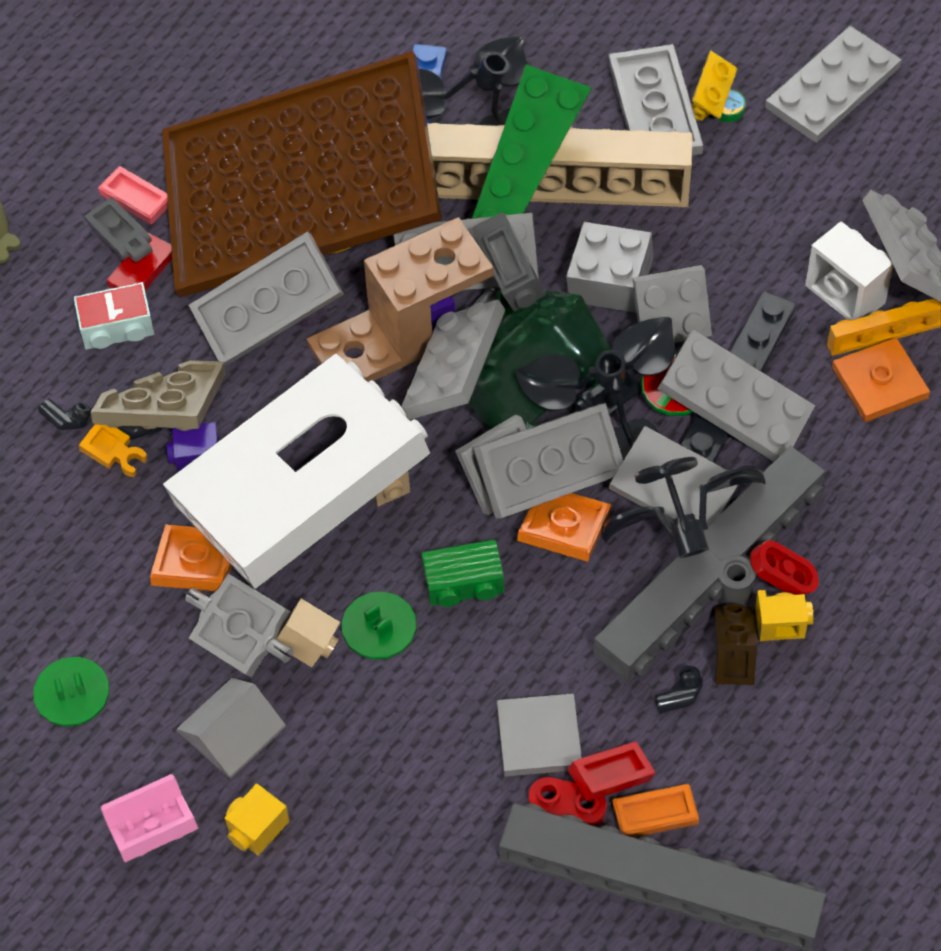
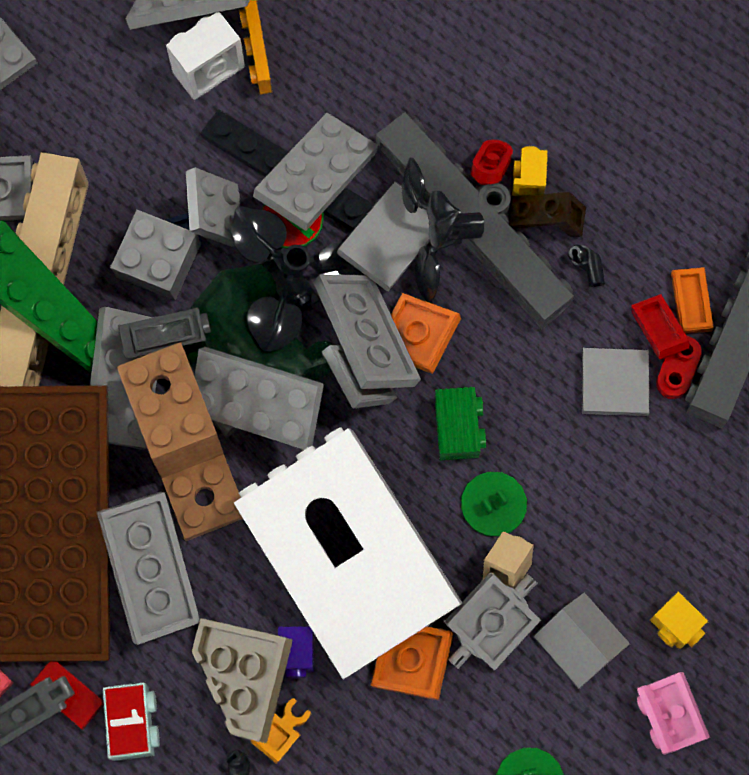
camera: 85 degrees left, 15 degrees up
(880, 379) = (305, 57): orange plate -> none

